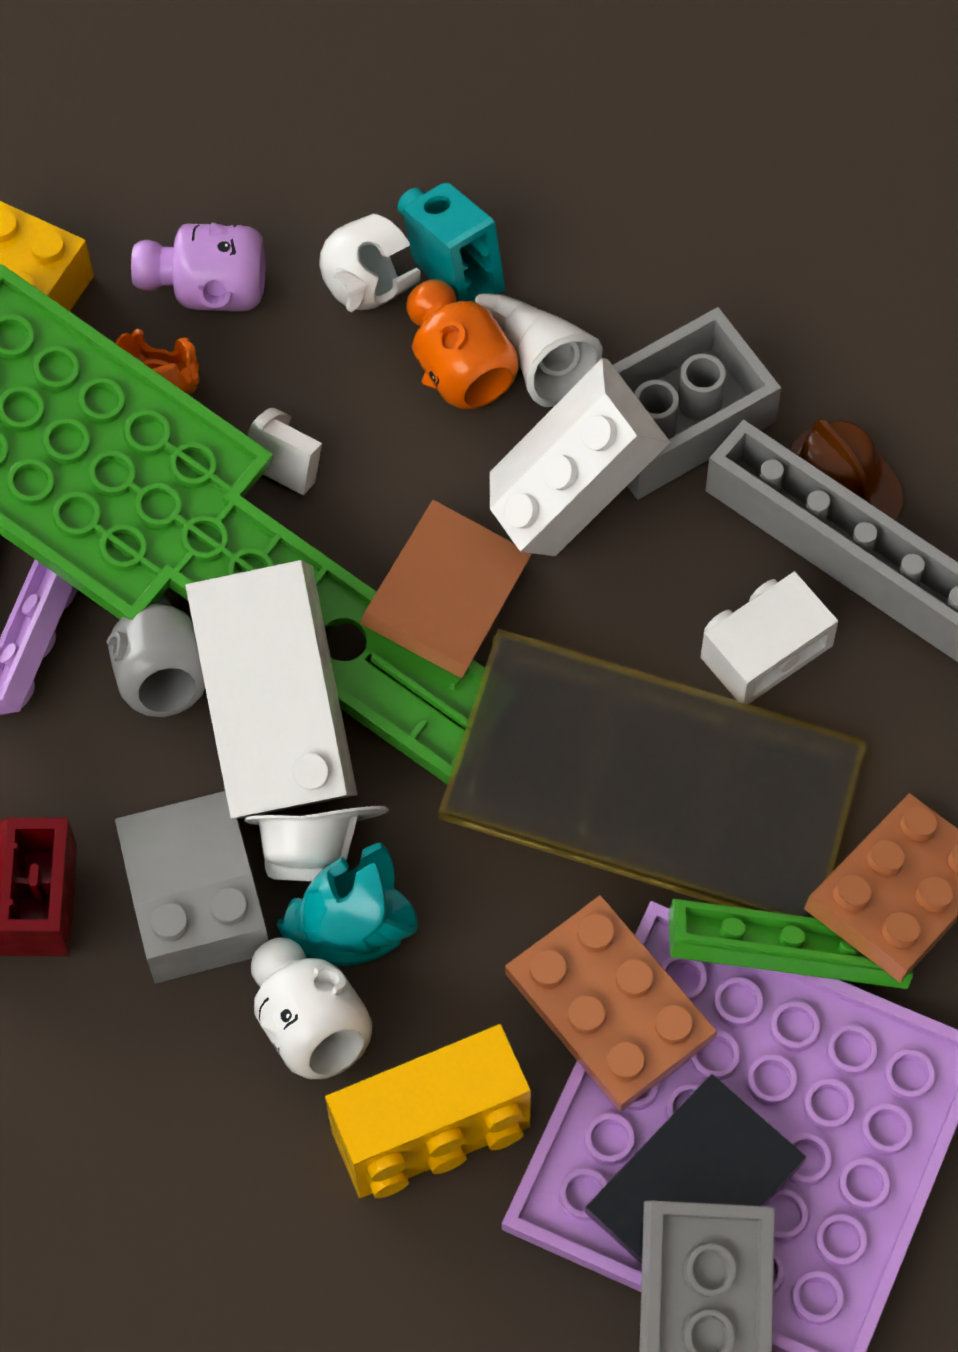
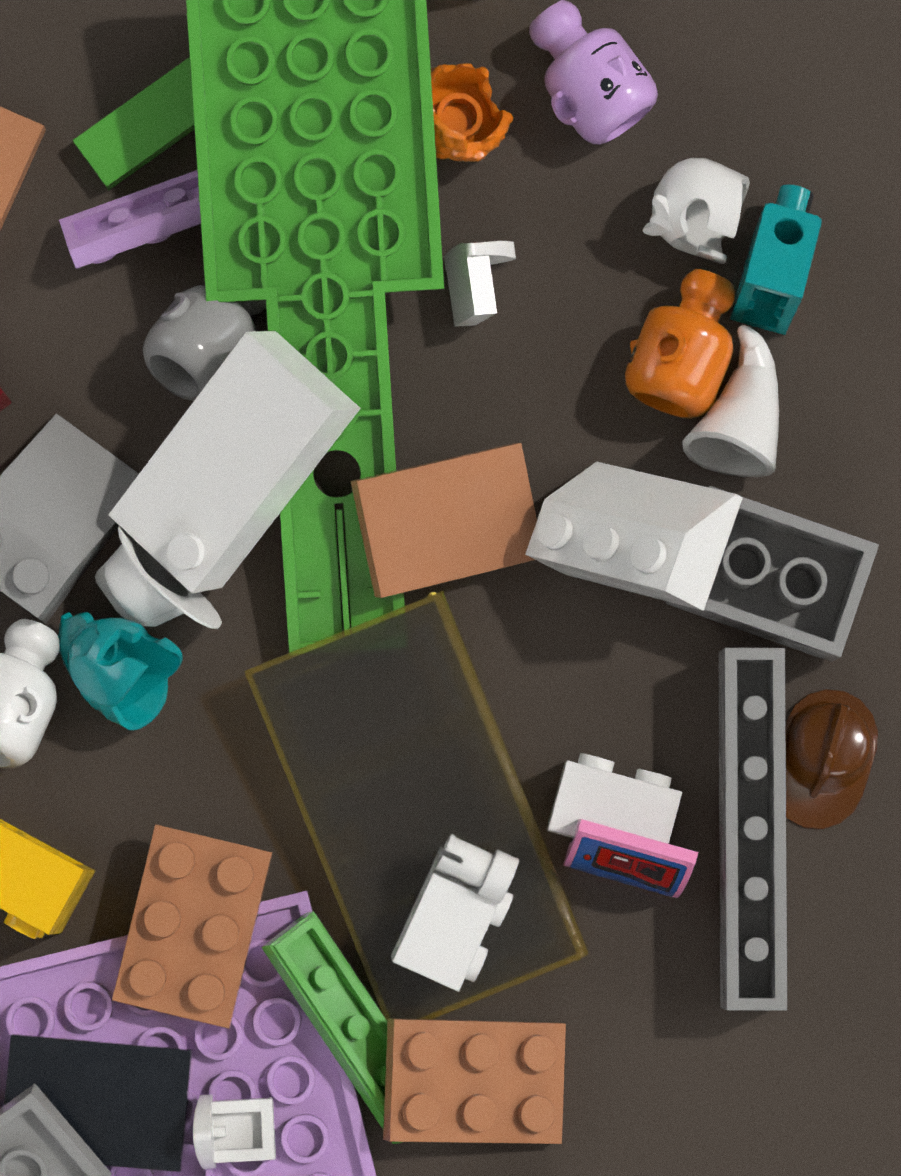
camera: 45 degrees right, 20 degrees up
(757, 792) = (454, 911): none -> white hinge
(804, 1093) = (233, 1130): none -> white tile
(817, 642) = (630, 858): none -> slope

